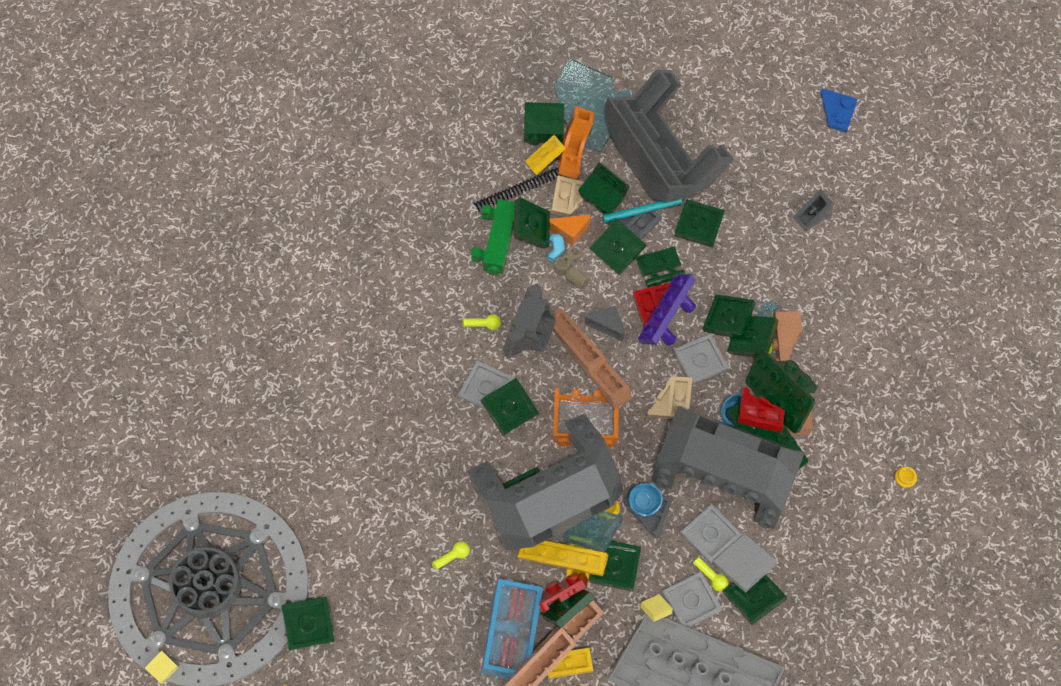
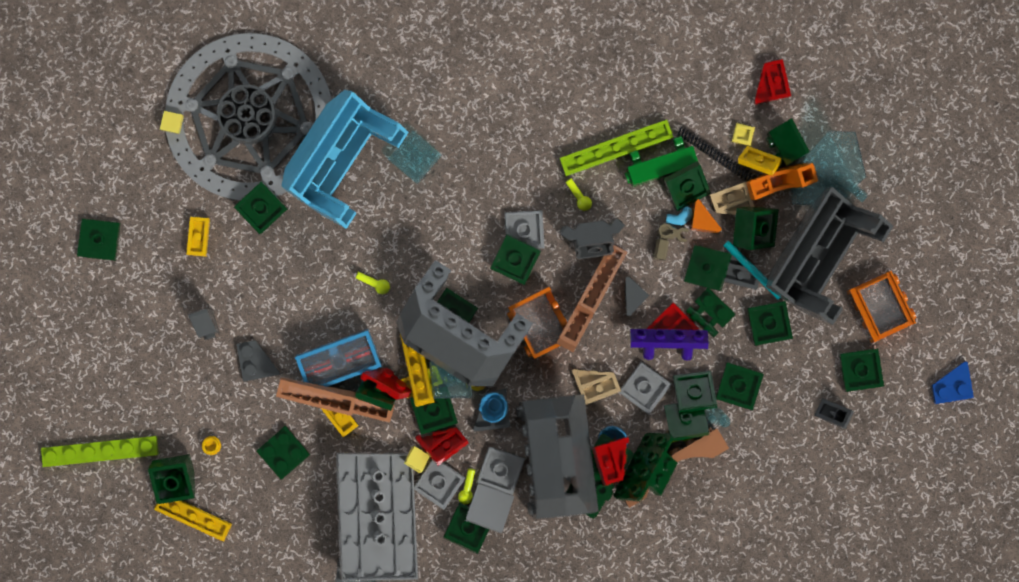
camera: 65 degrees right, 20 degrees up
(293, 517) = (332, 149): none -> medium azure wedge
(353, 448) = (415, 157): none -> clear light blue plate
(458, 267) = (616, 148): none -> lime plate
(481, 113) = (772, 83): none -> red wing
(512, 159) = (743, 134): none -> light yellow tile
(654, 574) = (442, 444): none -> red wing
(736, 125) = (882, 306): none -> window
(744, 276) = (739, 386): none -> dark green plate
(784, 172) = (861, 370): none -> dark green plate

